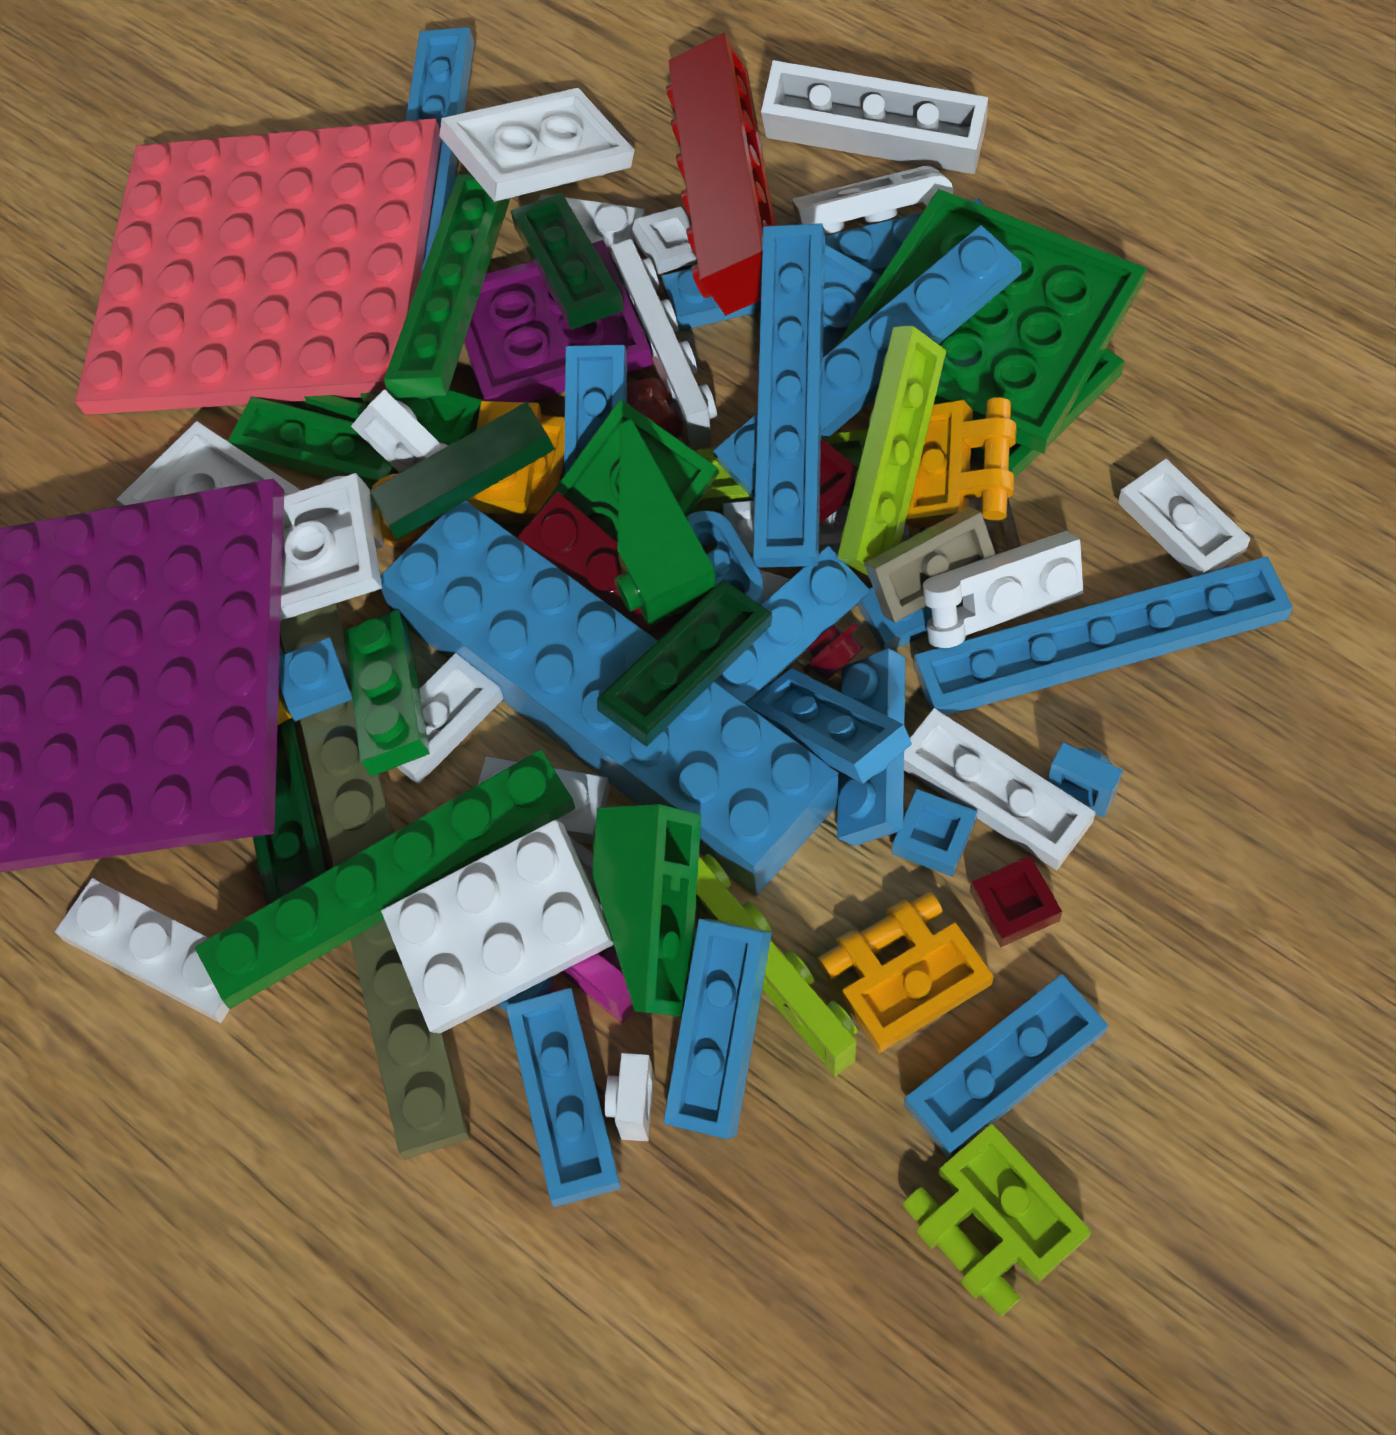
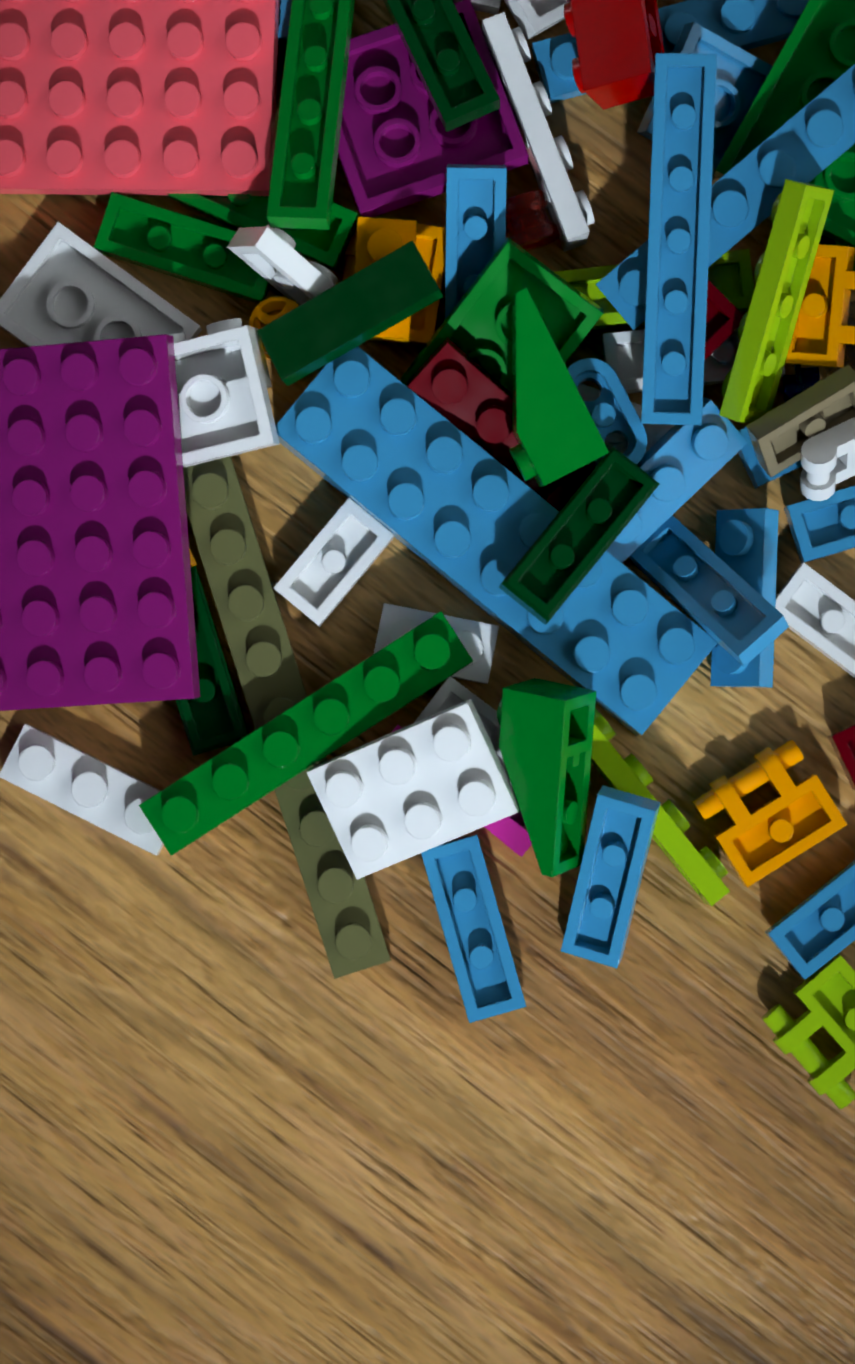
camera: 15 degrees left, 25 degrees up
(313, 679) = (216, 530): dark azure plate -> none
(385, 693) = (285, 540): green plate -> none
(630, 1097) = (532, 931): white plate -> none
(833, 650) = (713, 499): dark red plate -> none
(934, 832) = (800, 683): dark azure plate -> none

